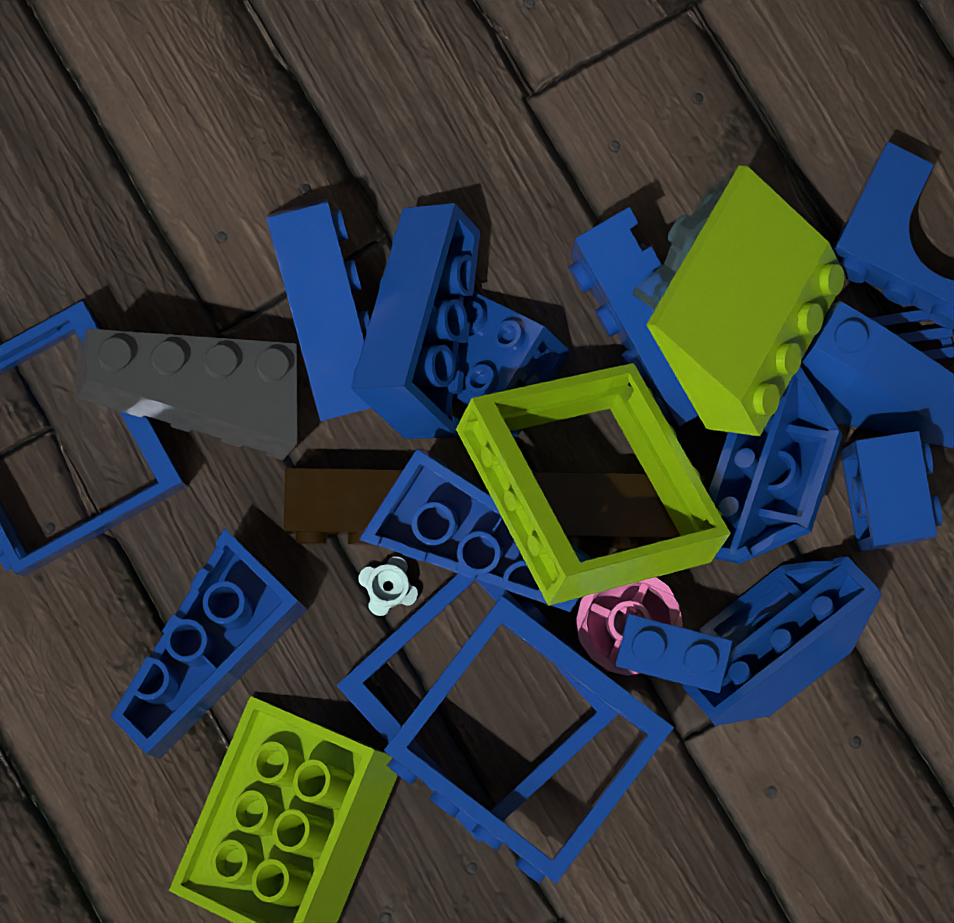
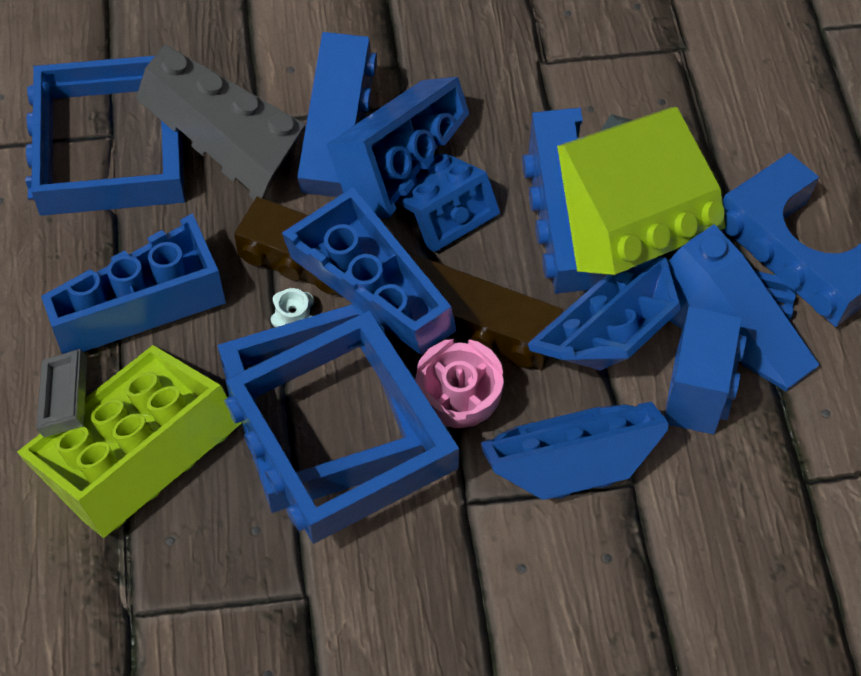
camera: 25 degrees right, 25 degrees down
(184, 805) = (62, 393): none -> dark grey tile
(527, 513) = (427, 196): lime window -> none
(673, 653) = (483, 406): blue plate -> none

